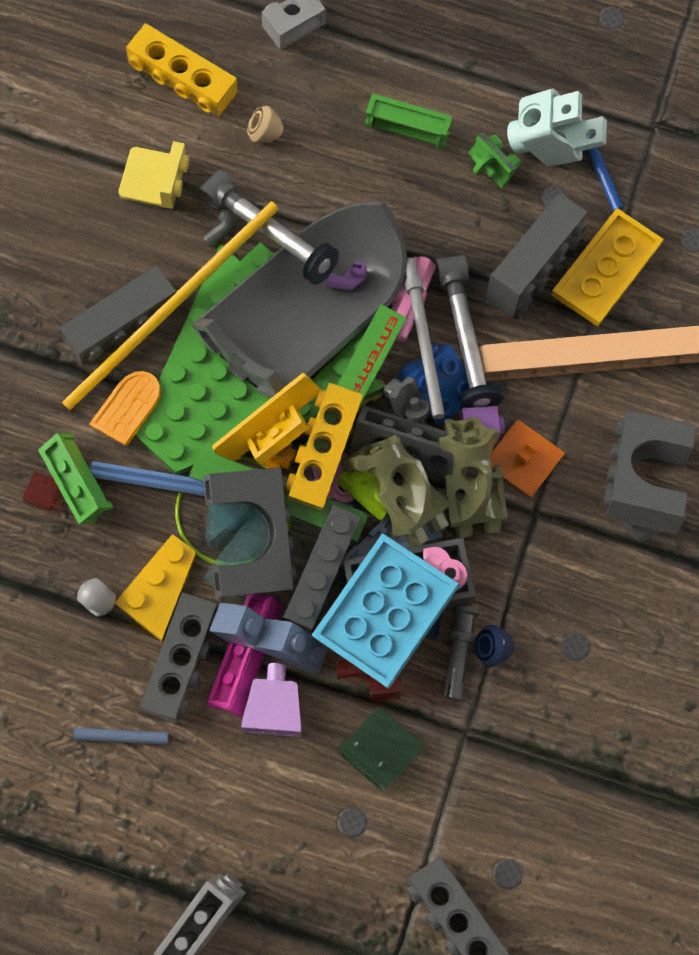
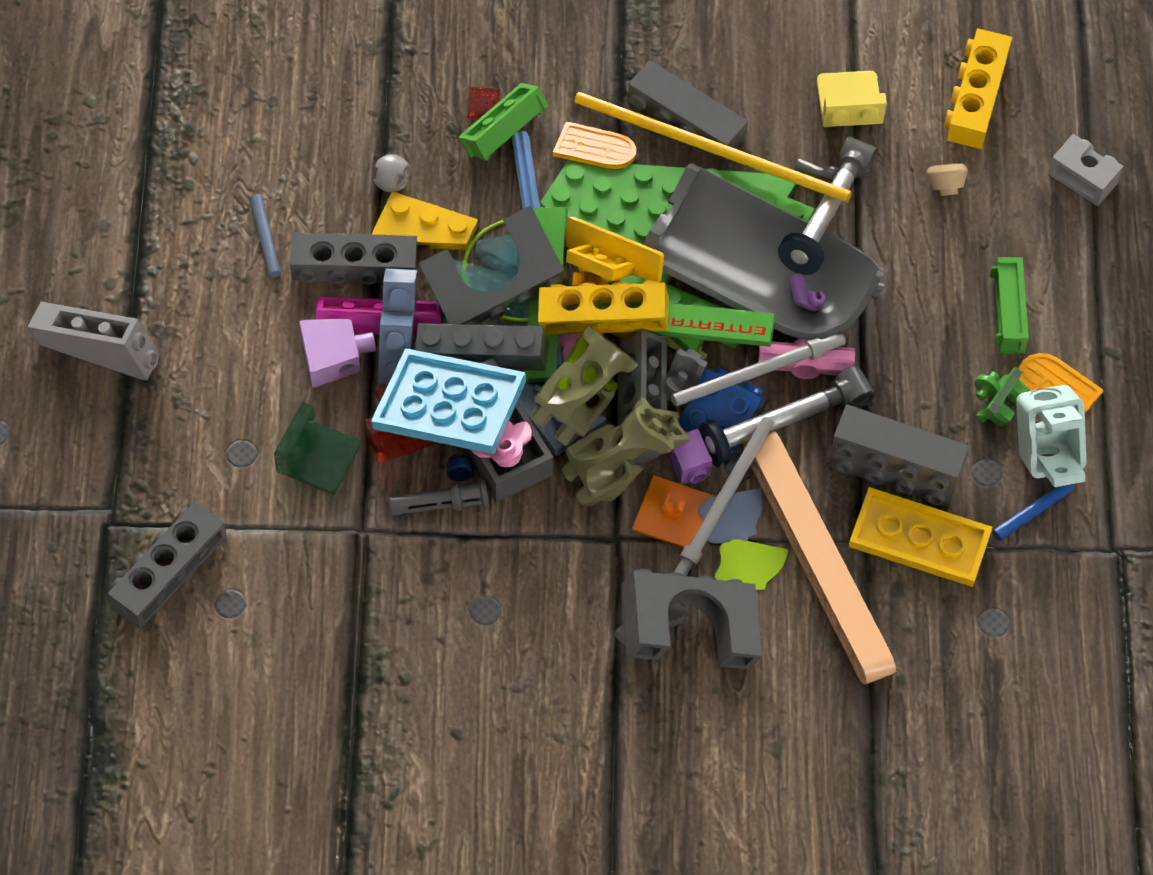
camera: 75 degrees right, 10 degrees down
(488, 114) = (1047, 371): none -> light orange window
(493, 646) = (456, 527): dark blue cone -> none
(542, 411) = (738, 517): none -> sand blue sticker
(574, 454) = (692, 553): none -> light grey bar
(591, 412) = (750, 562): none -> lime sticker

